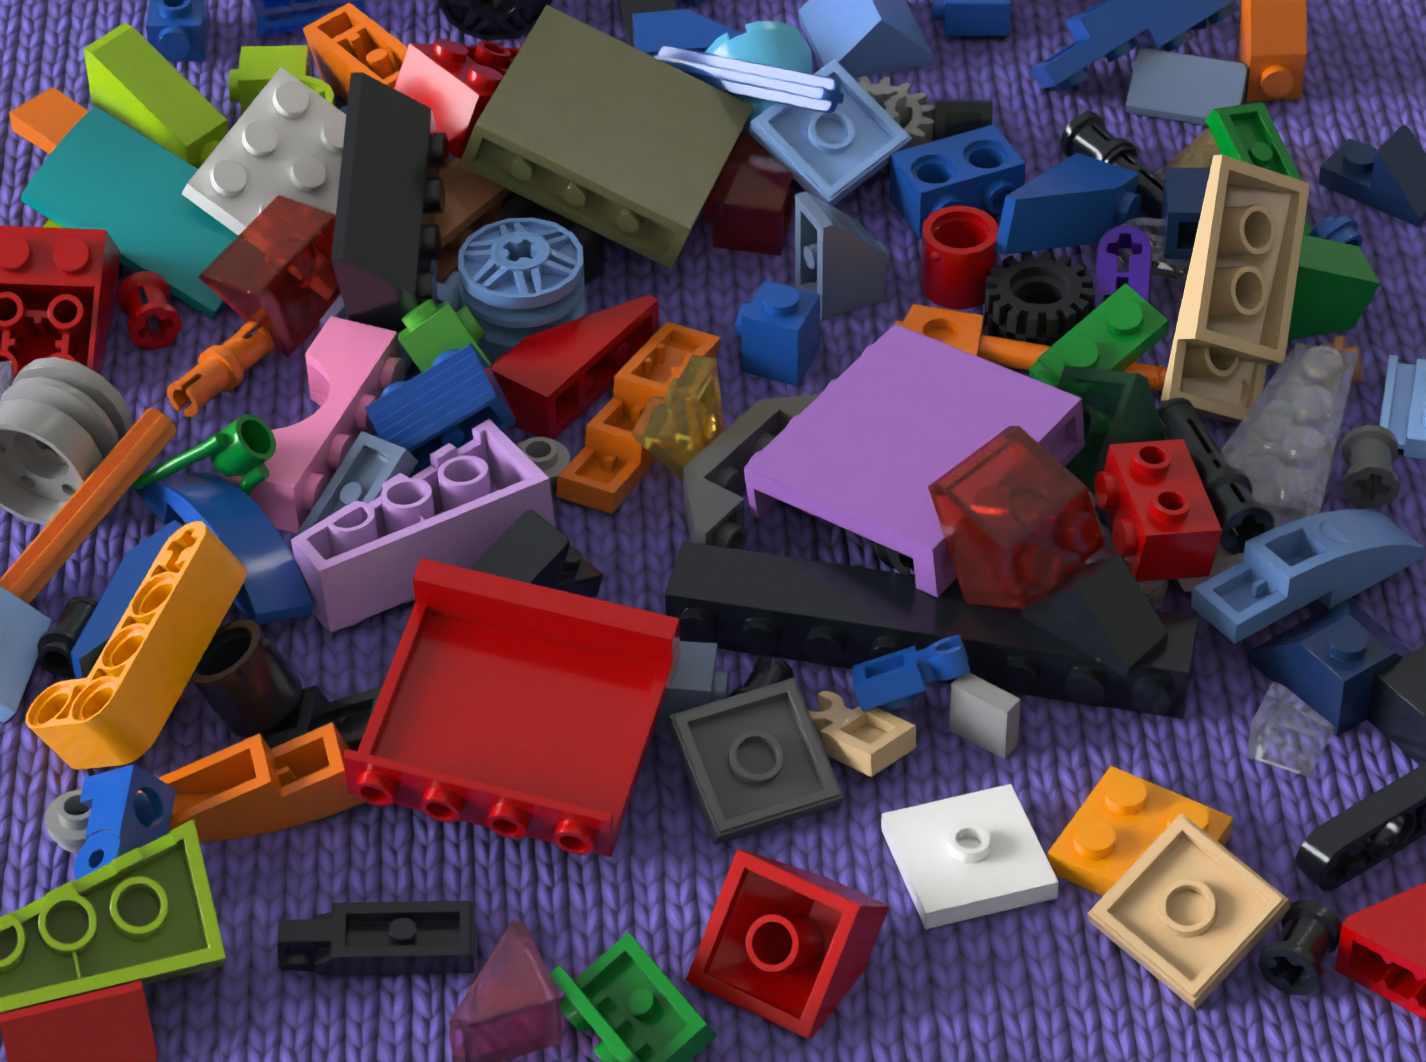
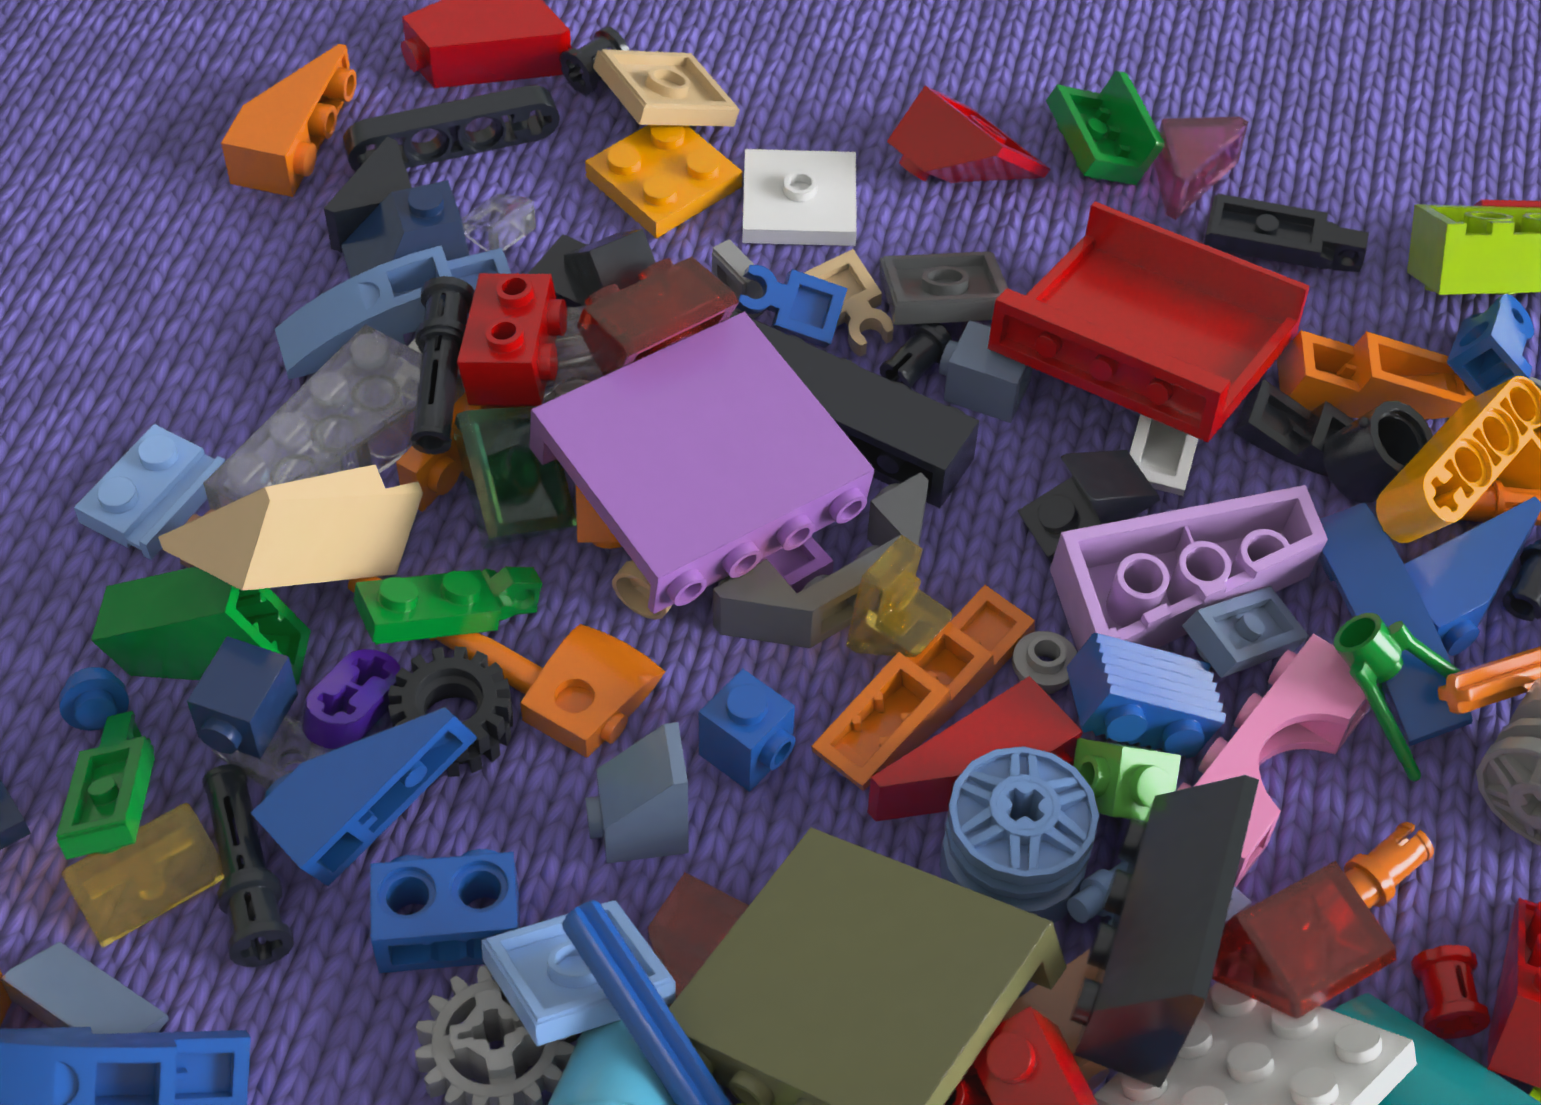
camera: 165 degrees left, 10 degrees up
(957, 256) = (506, 781): red piece -> none
(960, 116) = (390, 999): black tile -> none
(1370, 460) = (261, 405): dark grey bush -> none

